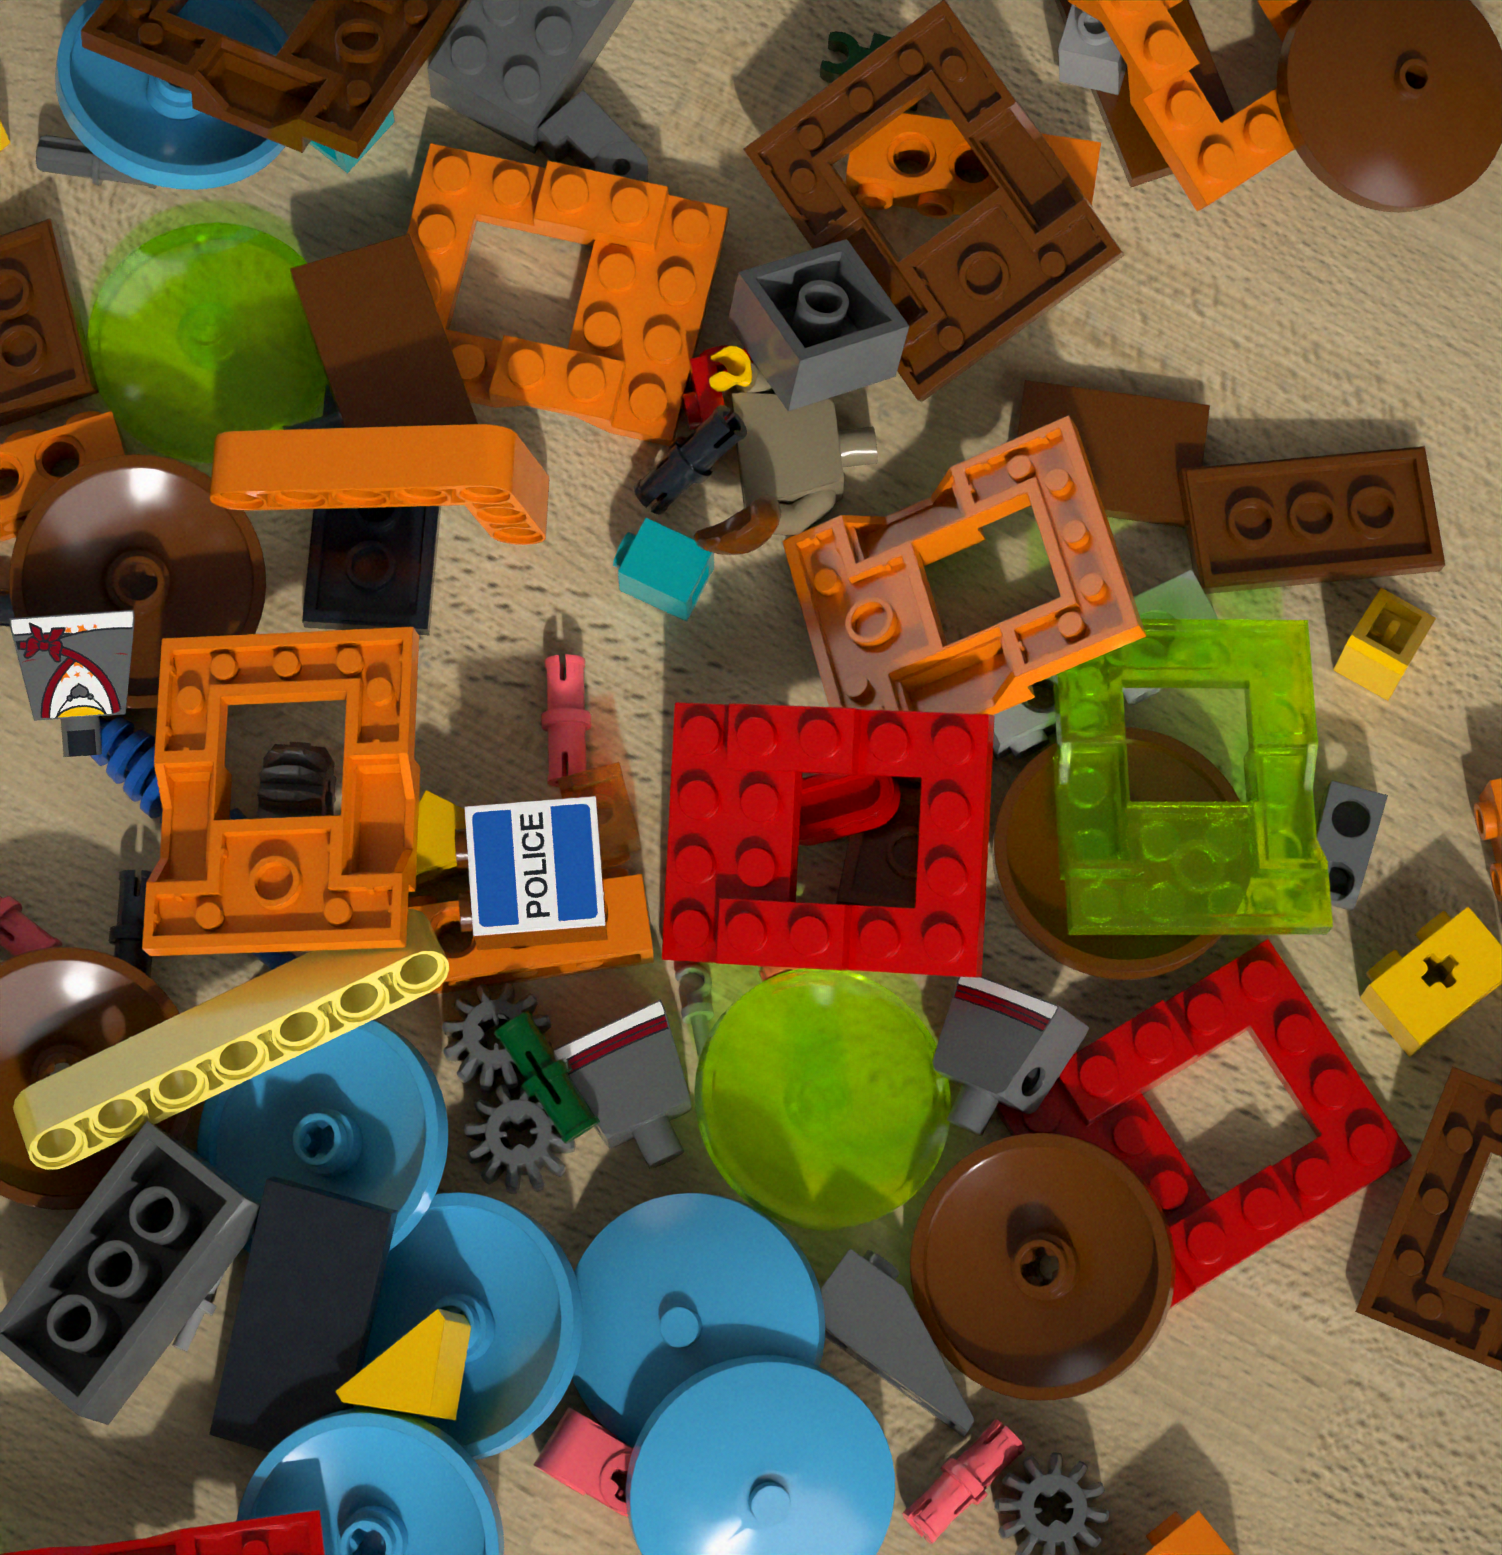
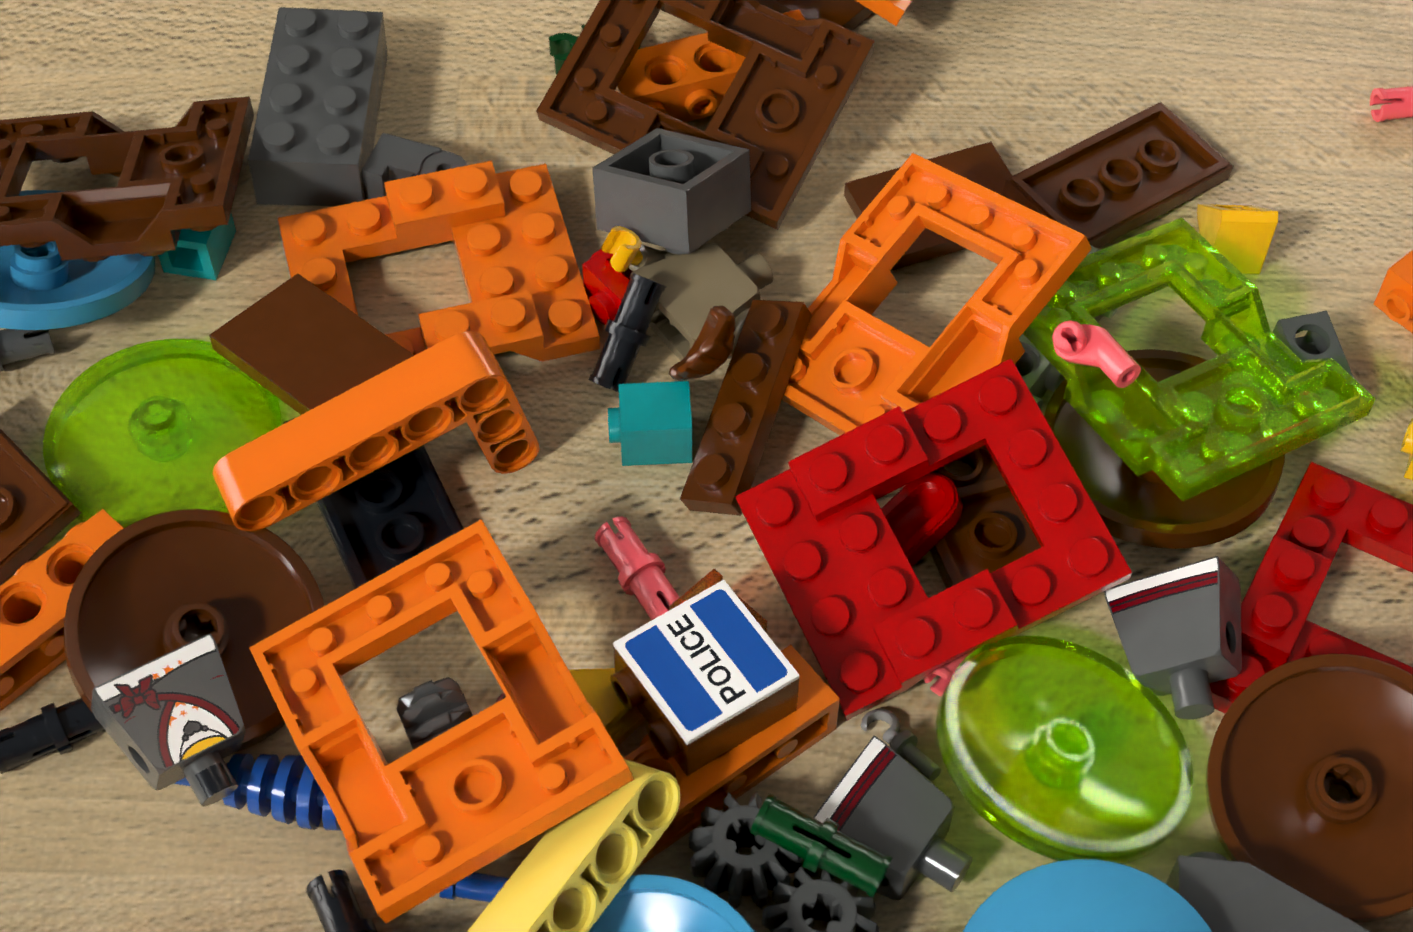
camera: 30 degrees left, 20 degrees down
(760, 598) = (746, 406): none -> reddish brown plate
(1087, 738) = (1095, 348): none -> coral arm

